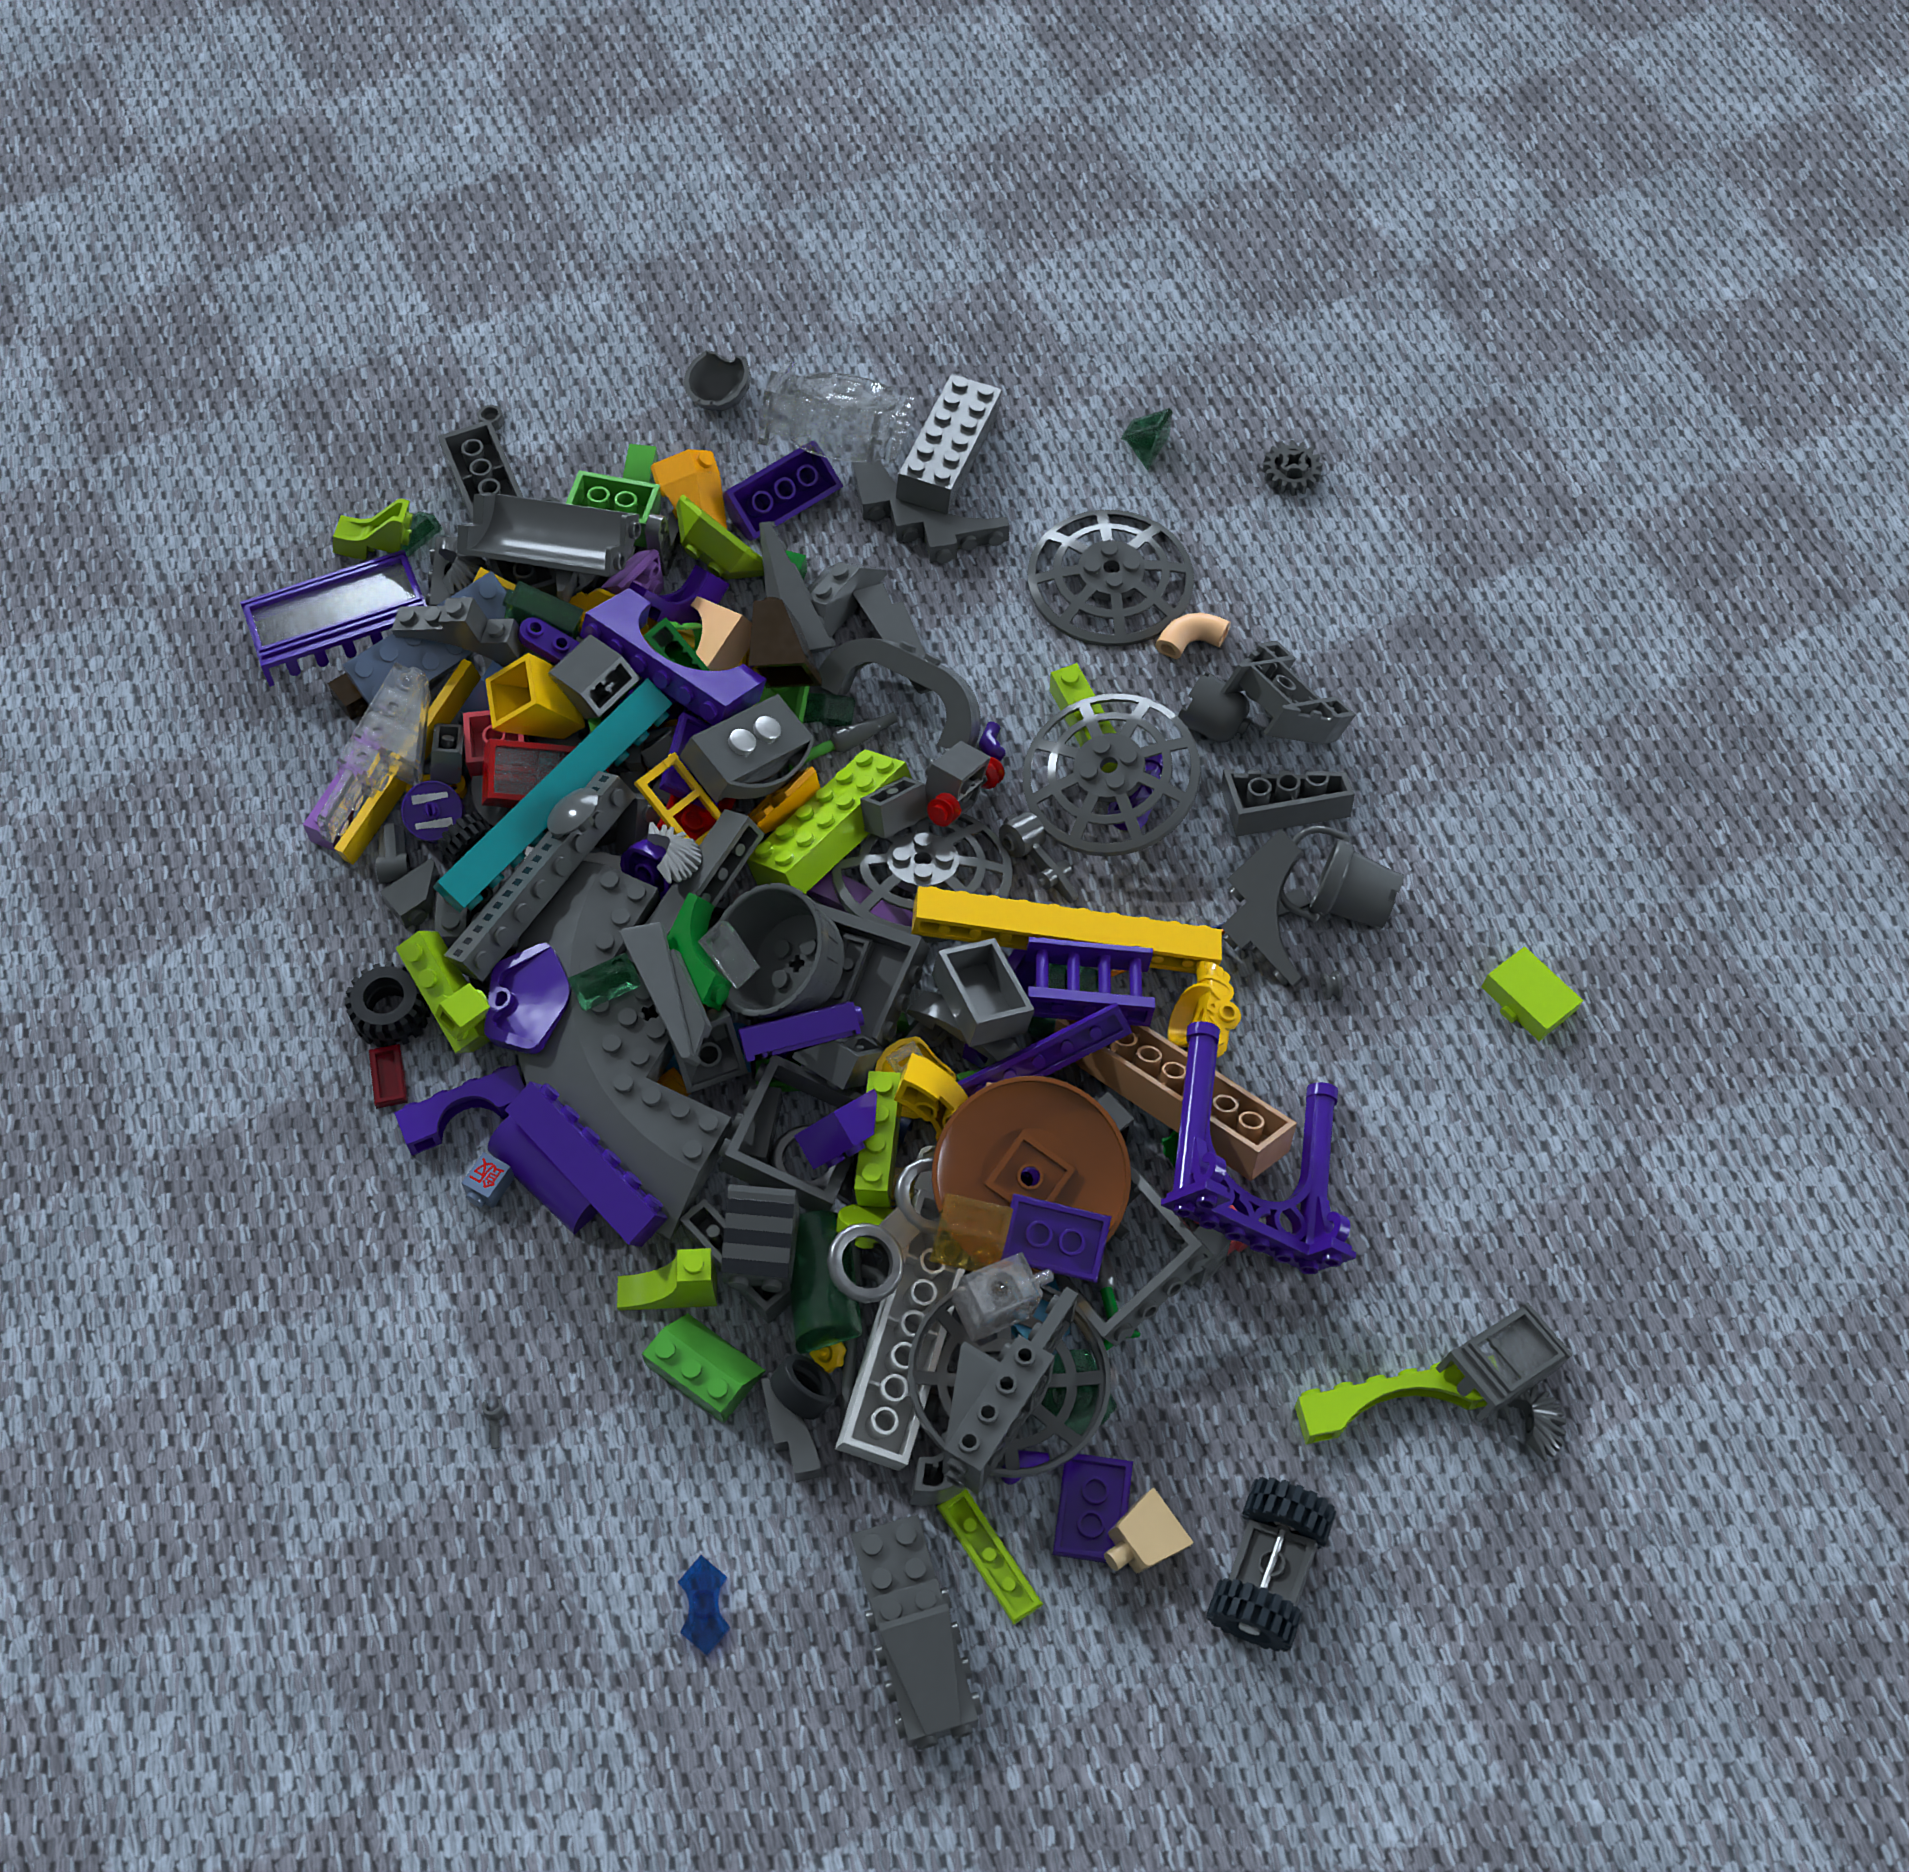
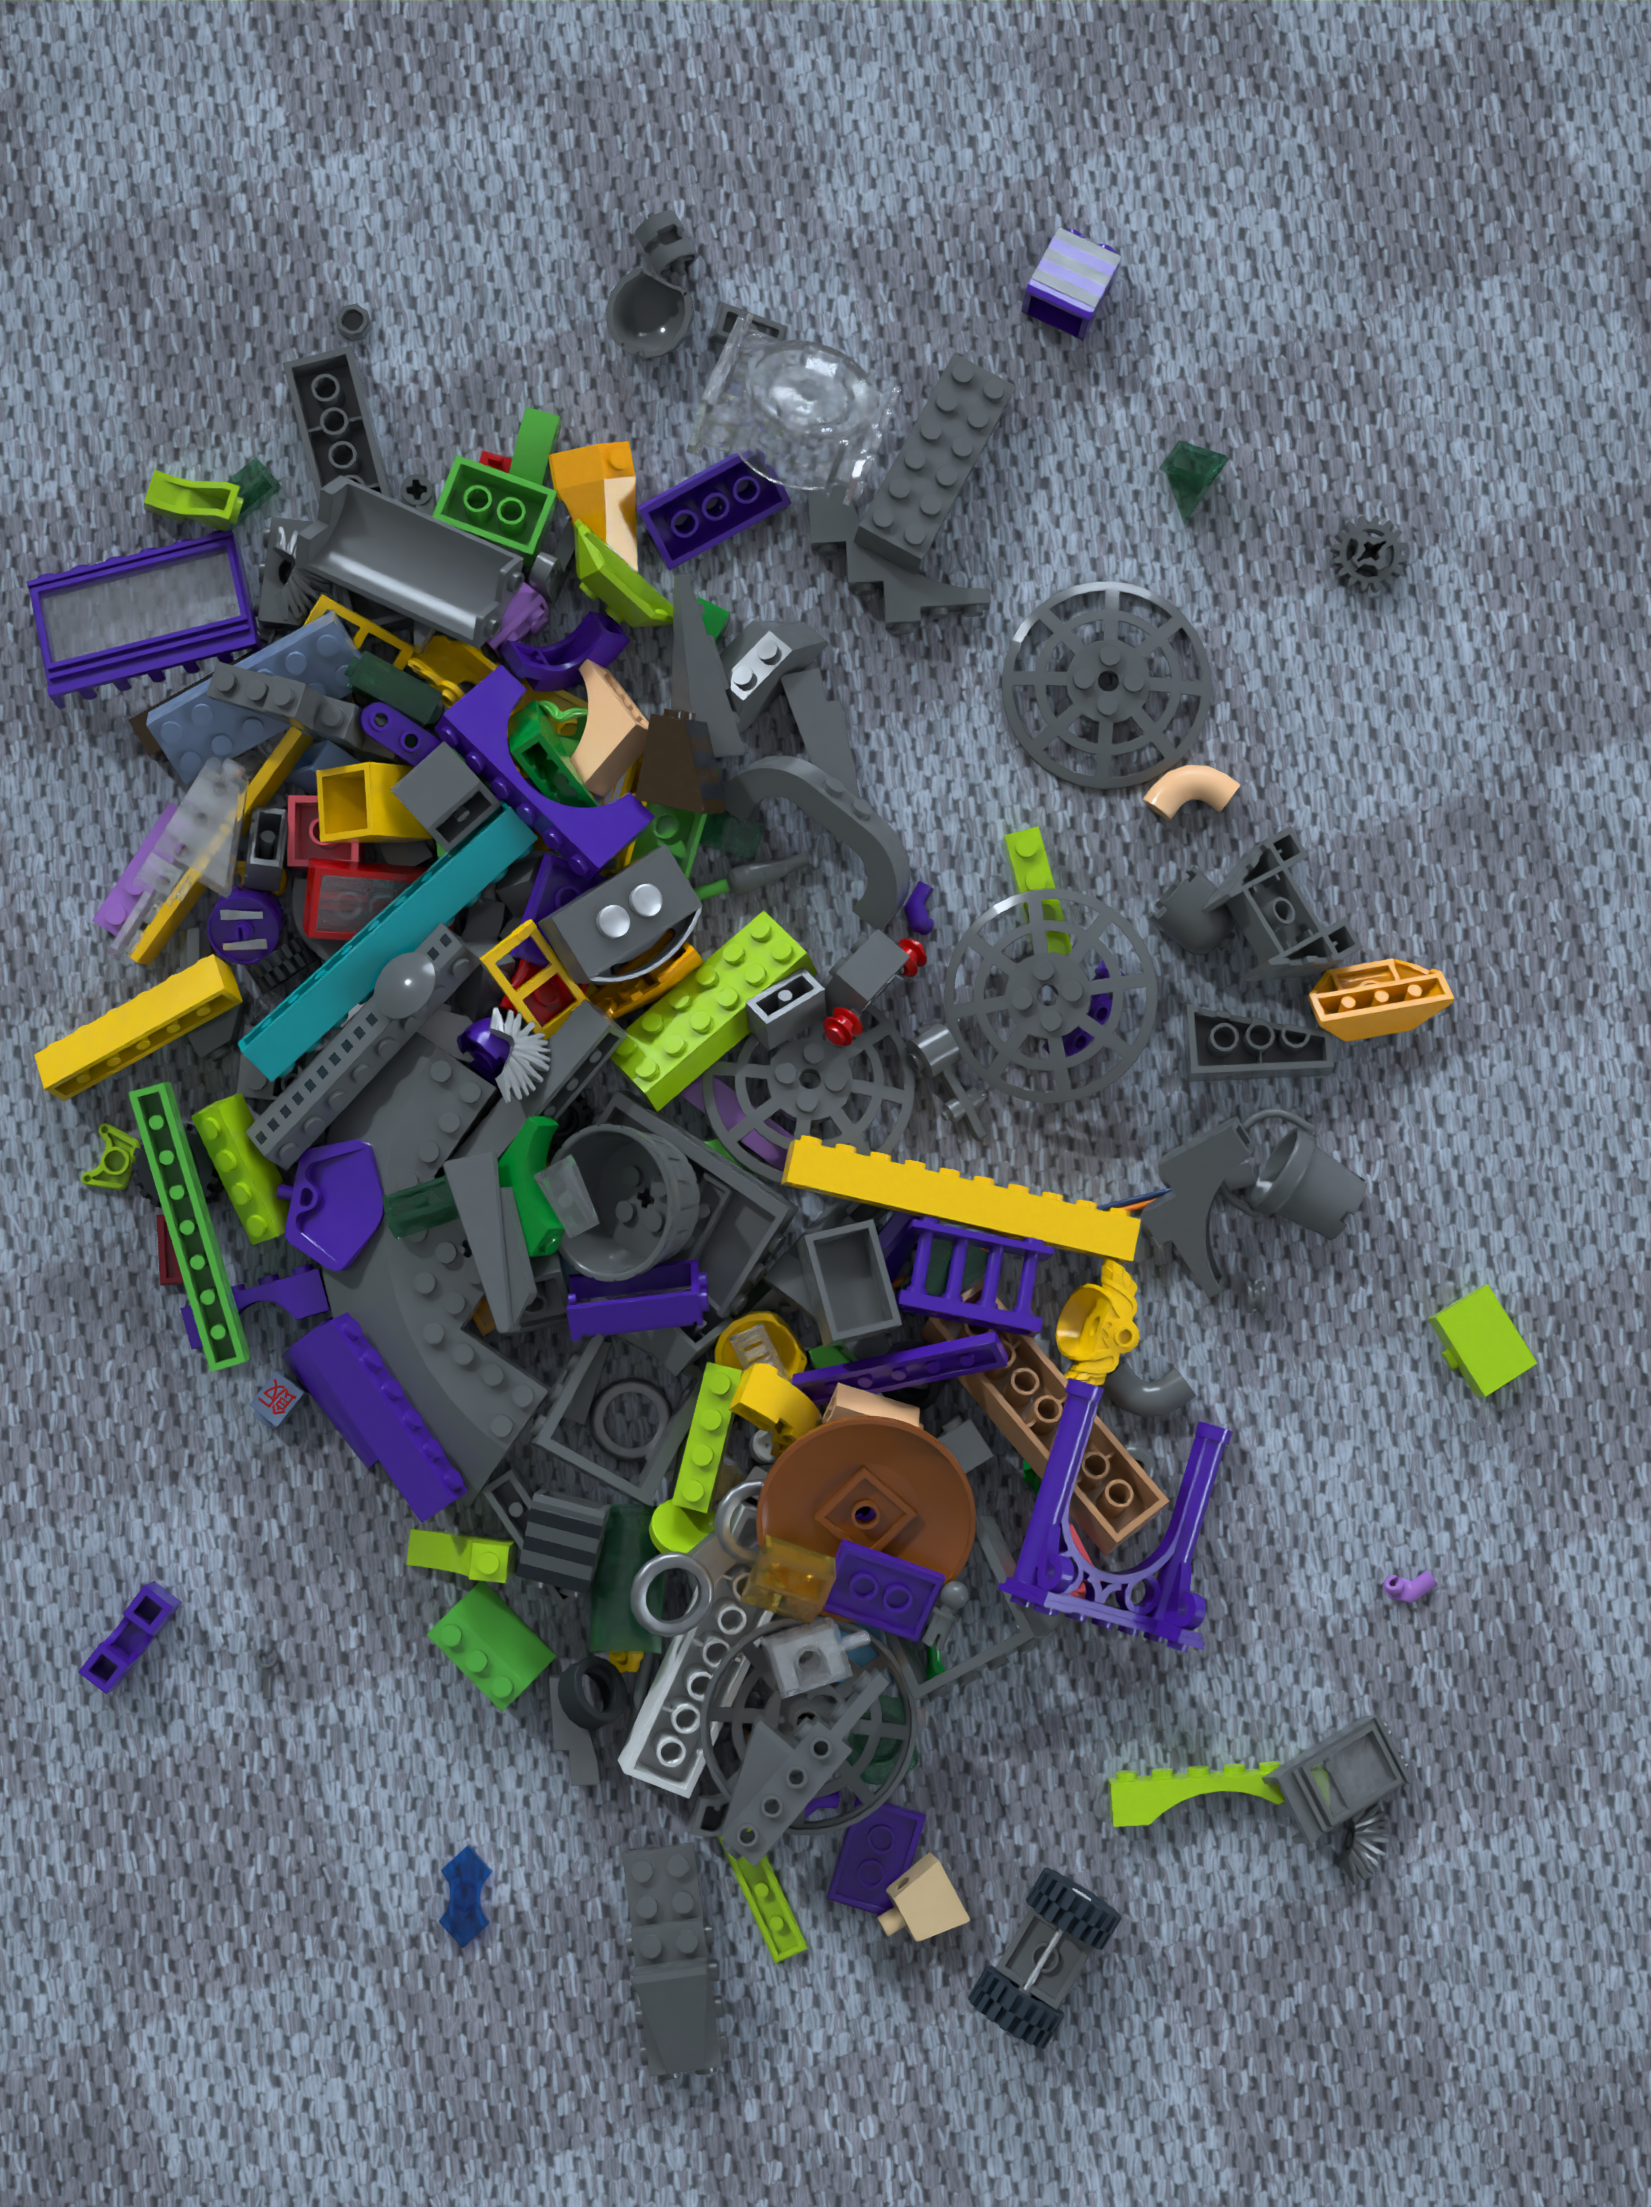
camera: 10 degrees right, 25 degrees up
(331, 1014) = (115, 1165): none -> lime piece
(344, 898) = (138, 1027): none -> yellow brick
(376, 1384) = (131, 1638): none -> dark purple arch
(400, 1031) = (190, 1226): none -> bright green brick
(462, 1010) = (262, 1213): lime brick -> none
(722, 338) = (664, 240): none -> dark grey wheel
(839, 1132) = (666, 1431): dark purple slope -> none
(1029, 332) = (1070, 282): none -> dark purple slope
(1122, 1232) = (953, 1596): none -> dark grey pin
(1258, 1075) = (1145, 1397): none -> dark grey cylinder
(1380, 753) = (1378, 998): none -> light orange wedge
(1523, 1203) = (1408, 1590): none -> medium lavender arm

